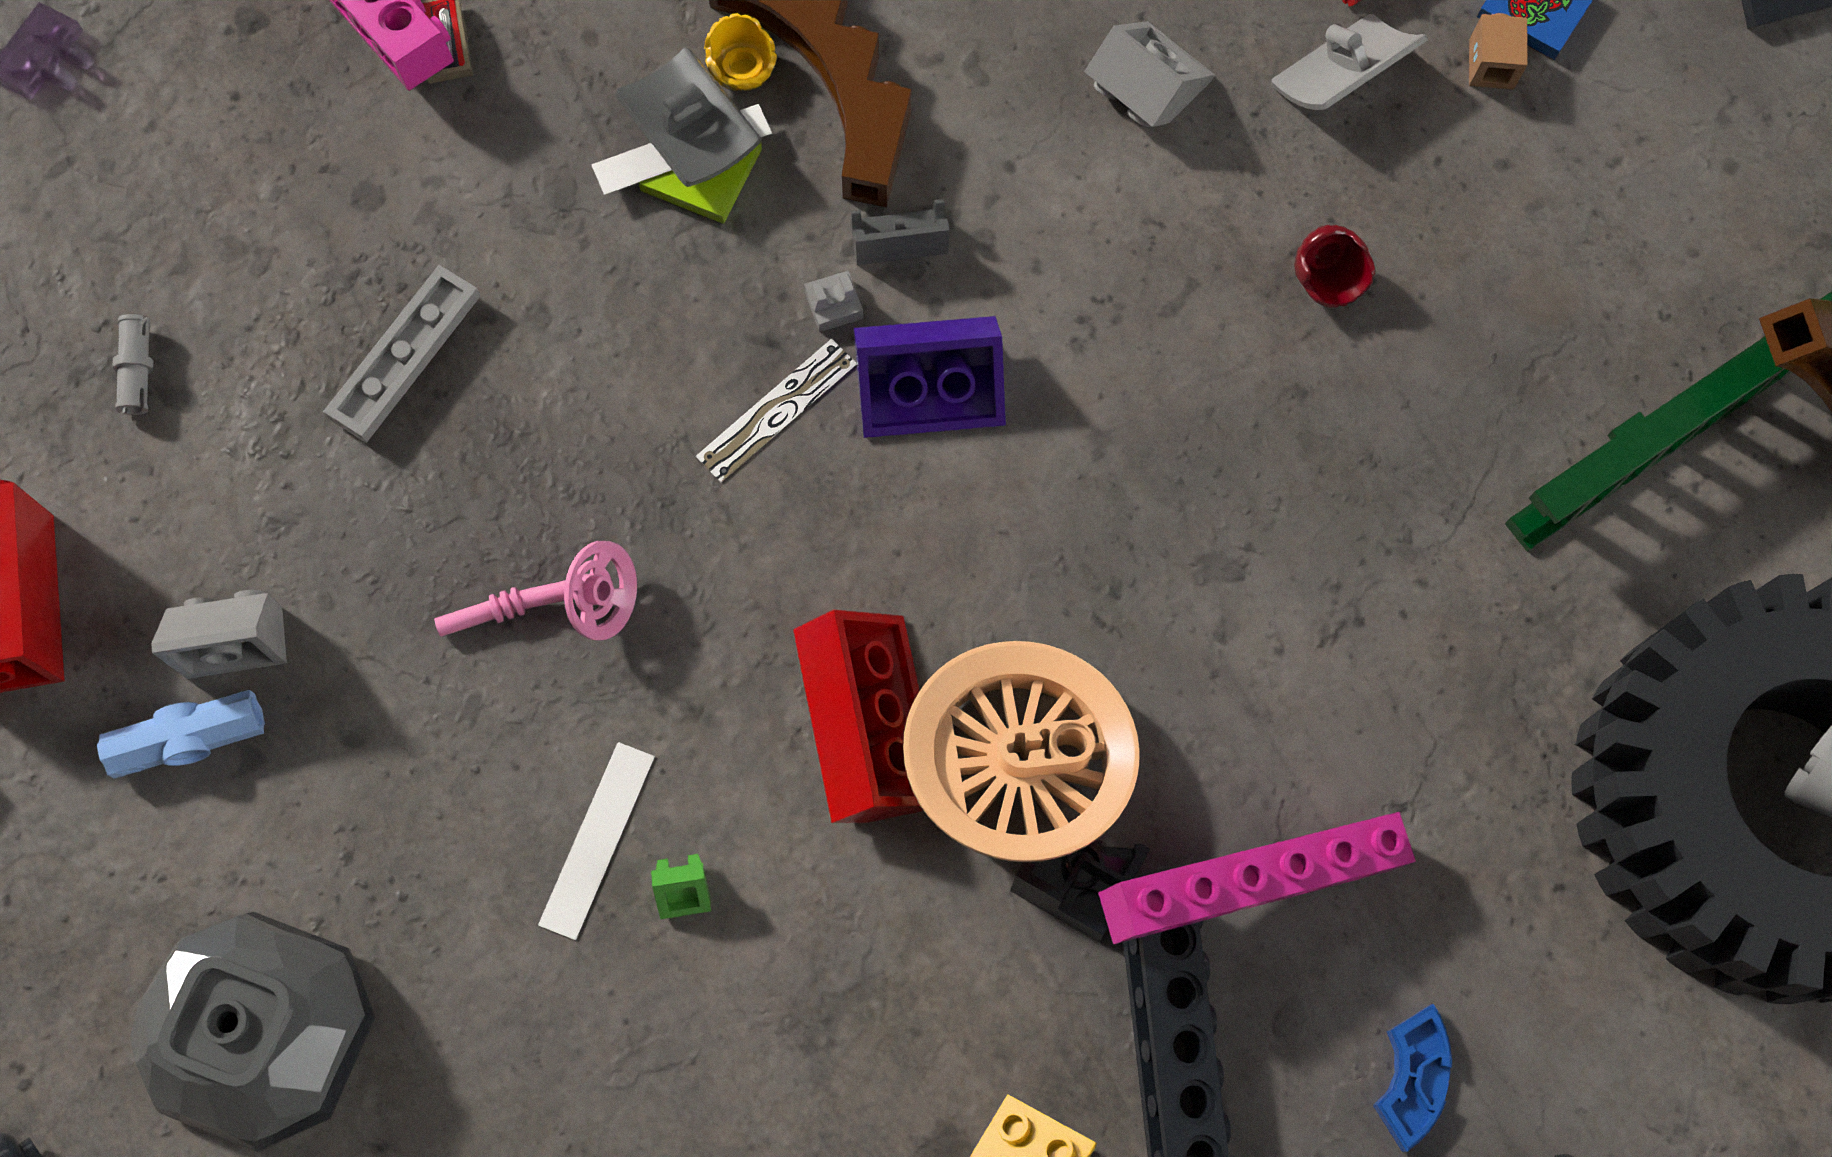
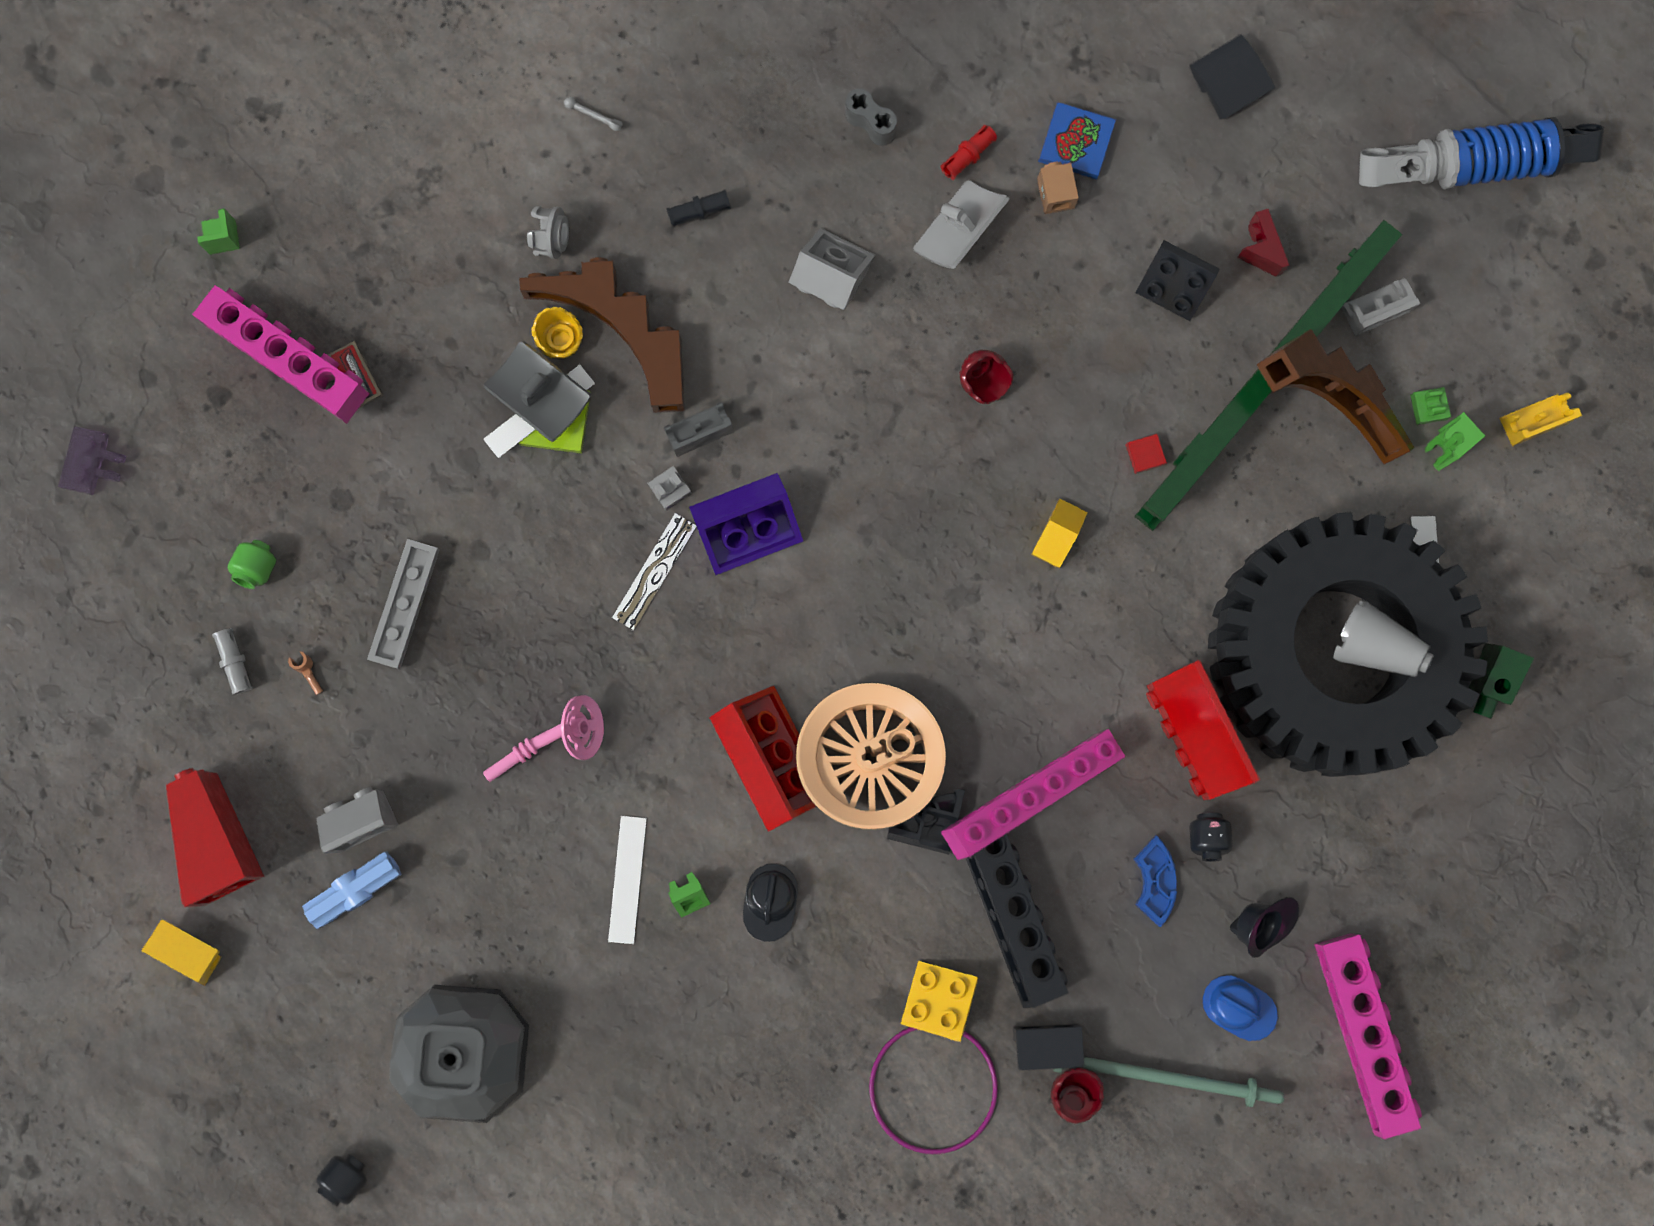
camera: 15 degrees left, 10 degrees up
(209, 240) = (251, 564): none -> bright green head
(232, 404) = (305, 669): none -> nougat hand
(803, 937) = (770, 902): none -> black piece
(1386, 516) = (1059, 533): none -> yellow slope
(1520, 1029) = (1210, 836): none -> black head
(1543, 439) = (1146, 453): none -> red tile
(1547, 855) = (1201, 732): none -> red slope
(1646, 209) = (1177, 280): none -> black plate
(1784, 204) = (1268, 251): none -> dark red slope

